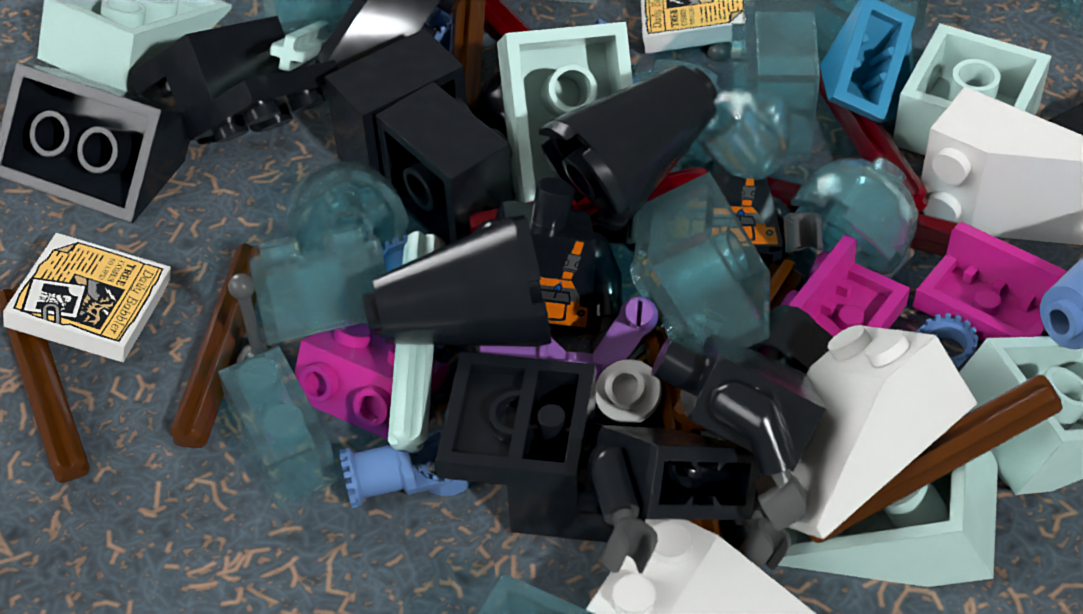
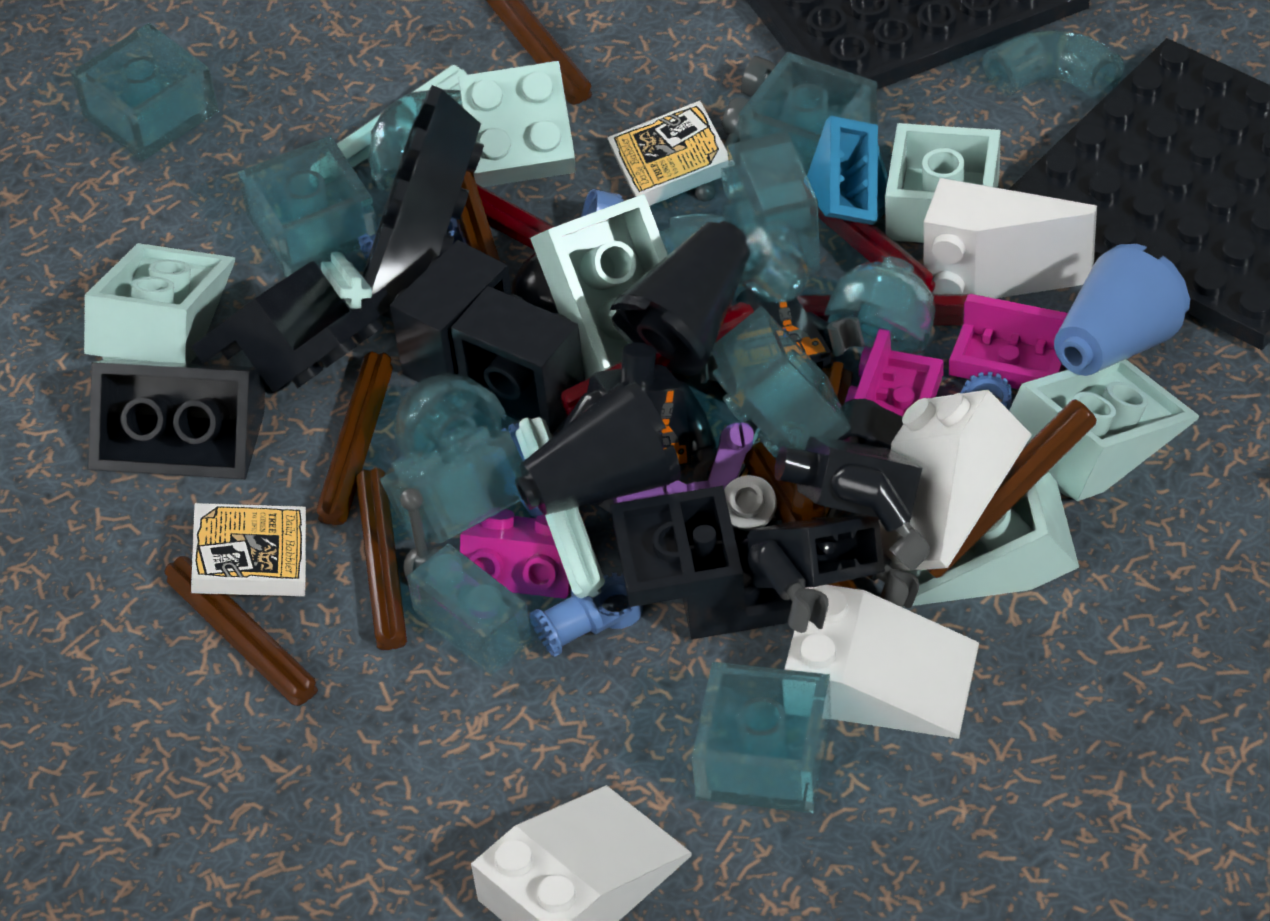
camera: 15 degrees left, 0 degrees up
(254, 211) = (354, 439): none -> reddish brown axle

